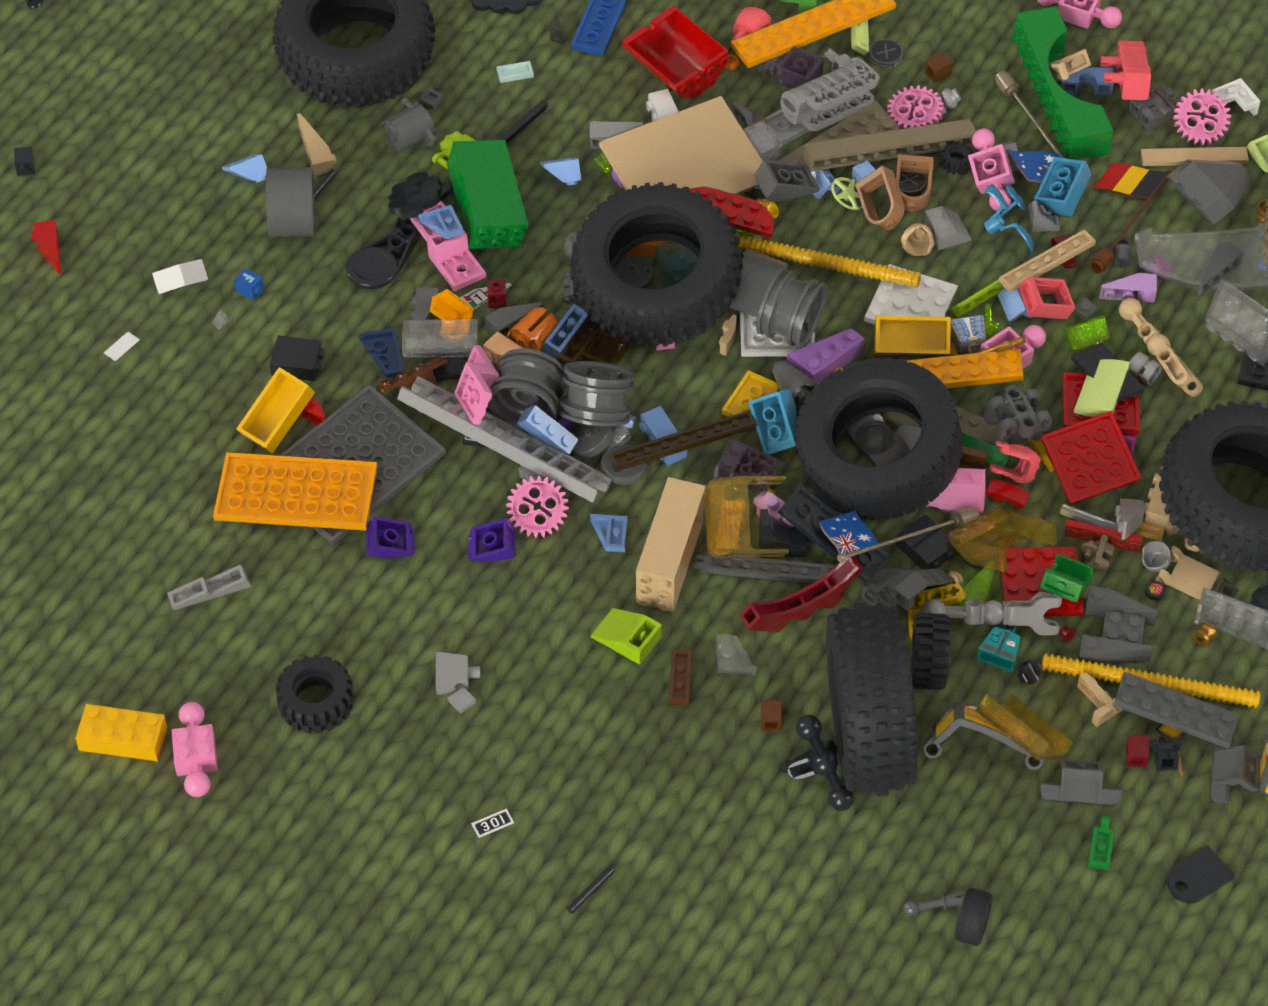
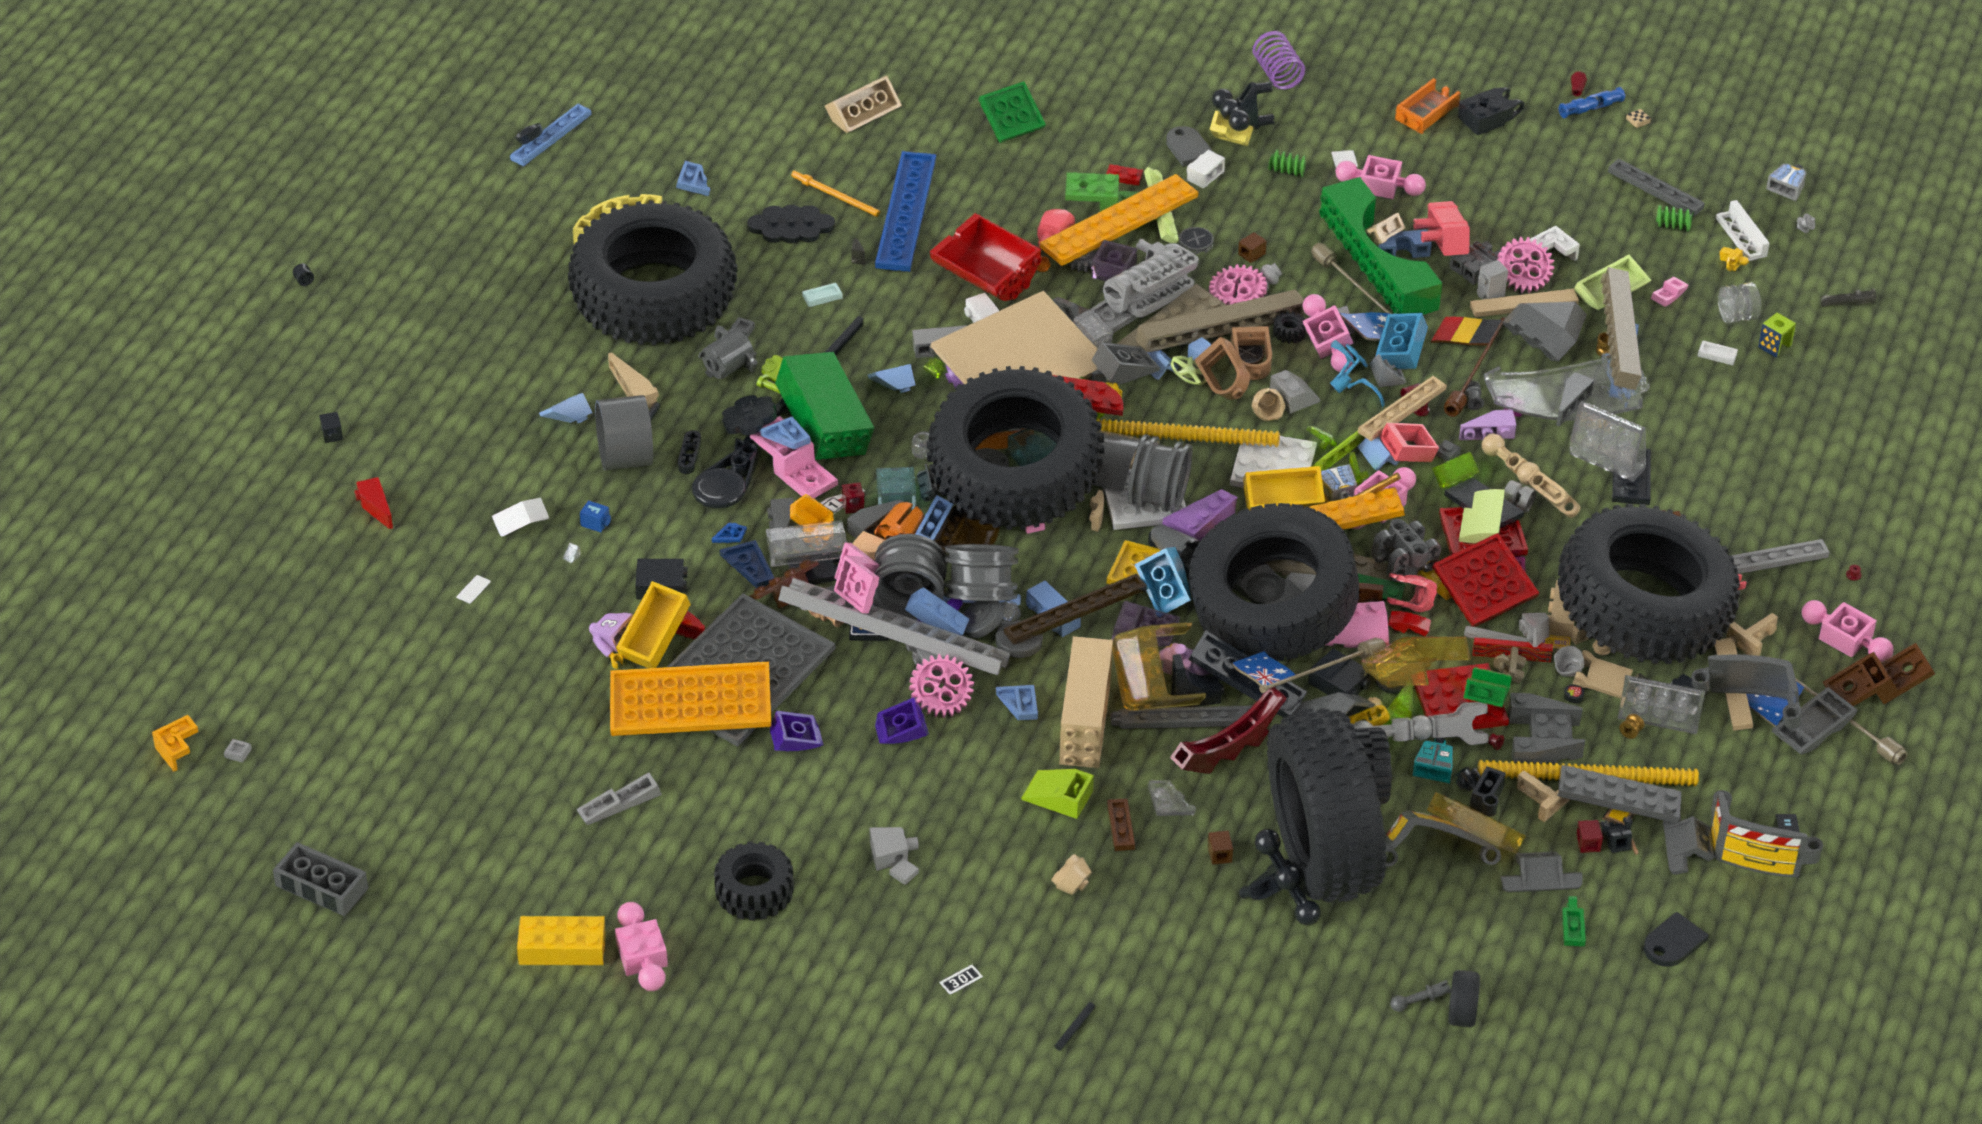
camera: 10 degrees left, 10 degrees down
(234, 410) = (608, 634): none -> lavender torso
(354, 232) = (686, 446): none -> black beam
(373, 317) = (730, 533): none -> blue piece
(540, 286) = (895, 485): none -> clear light blue brick
(620, 728) = (1072, 875): none -> tan cone
(967, 282) = (1323, 436): none -> clear neon green piece
(1044, 690) = (1487, 791): none -> black hinge
(1165, 131) = (1492, 280): none -> light grey brick

